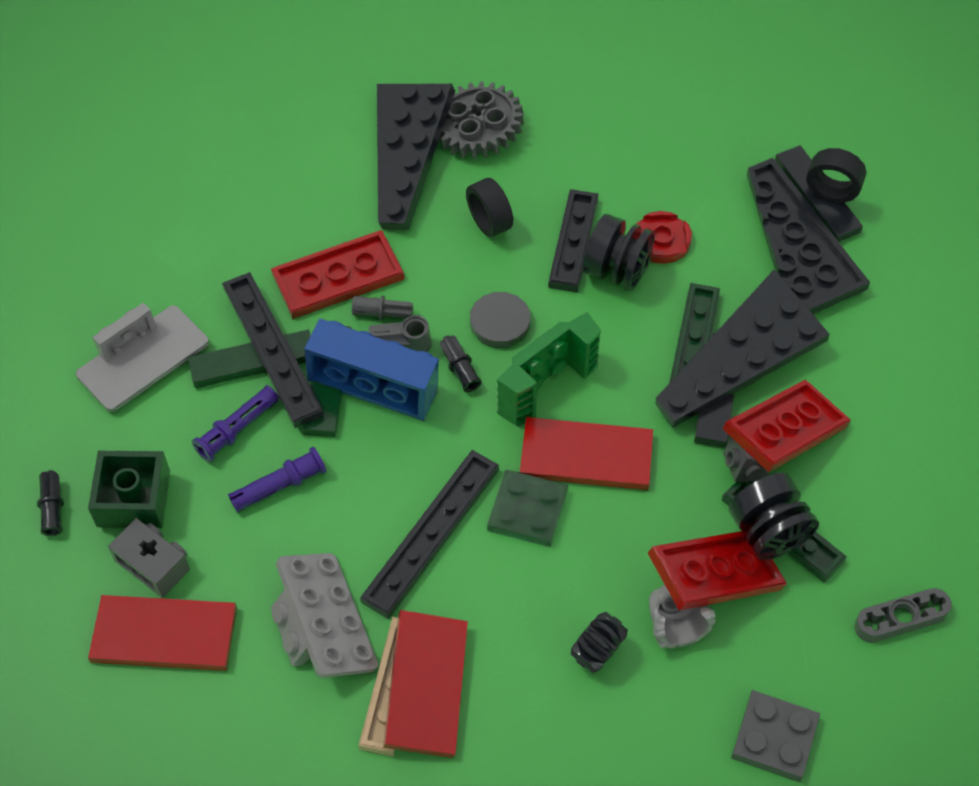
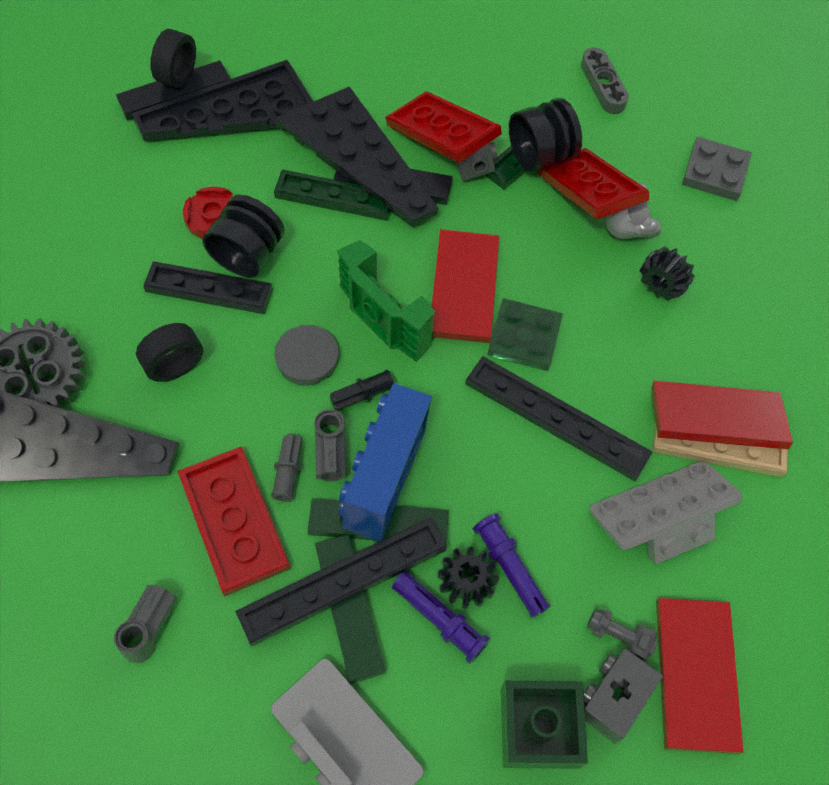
camera: 95 degrees left, 5 degrees up
(198, 583) = (640, 641): none -> dark grey bar
(241, 216) = (146, 621): none -> dark grey piece
(267, 442) = (462, 587): none -> black gear

